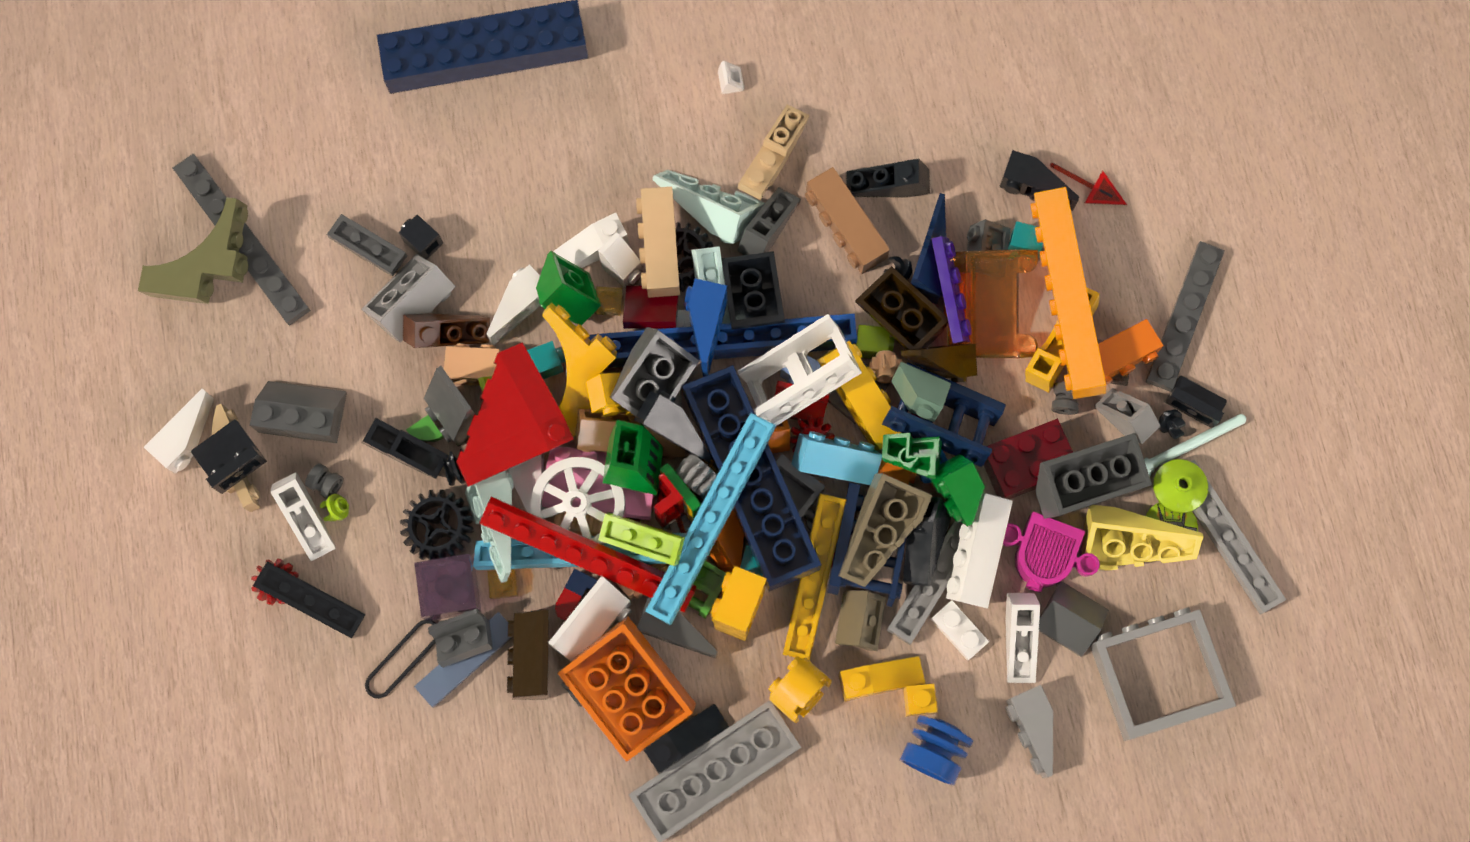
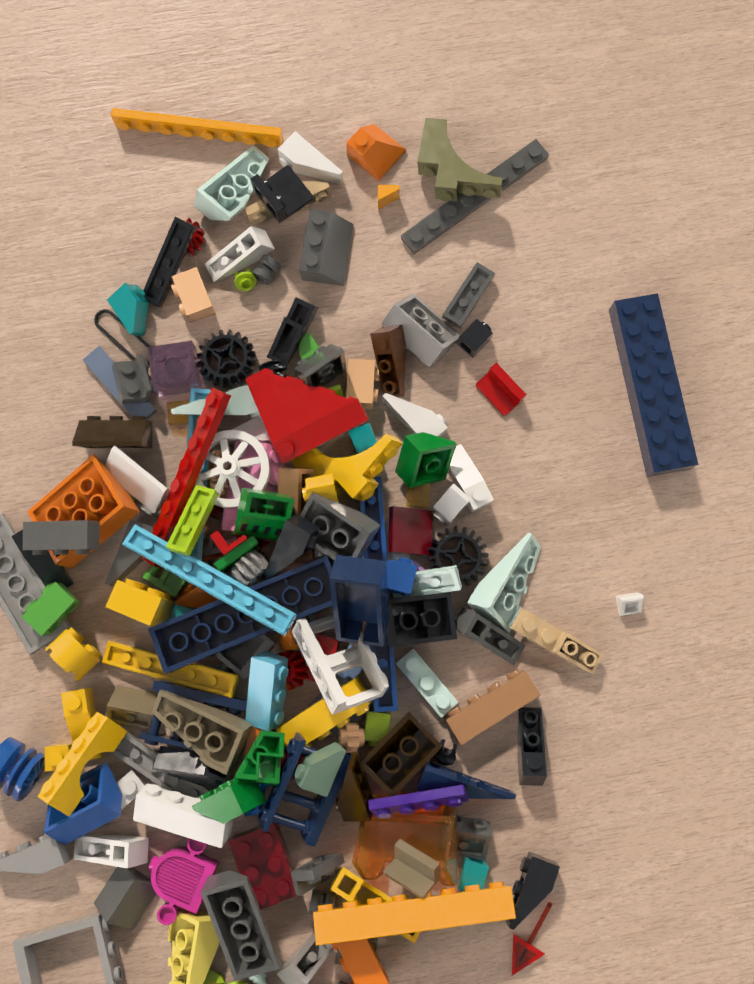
camera: 90 degrees right, 5 degrees up
(124, 582) = (197, 127): none -> light orange plate
(174, 355) = (374, 150): none -> orange slope
(217, 526) = (230, 188): none -> light aqua wedge
(232, 340) = (387, 194): none -> light orange slope
(352, 570) = (193, 295): none -> light nougat brick
(366, 646) = (130, 307): none -> teal slope
(483, 210) = (500, 390): none -> red panel
(573, 593) = (160, 466): leg -> none
(659, 242) = (465, 537): tan brick -> none
(661, 700) = (61, 536): none -> dark grey brick
(730, 335) = (360, 596): none -> dark blue piece
(746, 718) = (50, 608): none -> bright green brick
(823, 290) = (427, 683): none -> light aqua plate
(952, 681) = (63, 787): none -> yellow arch
(972, 667) = (98, 806): none -> blue slope
(1022, 294) = (413, 869): none -> dark tan panel
(1031, 401) = (315, 872): none -> dark grey bracket

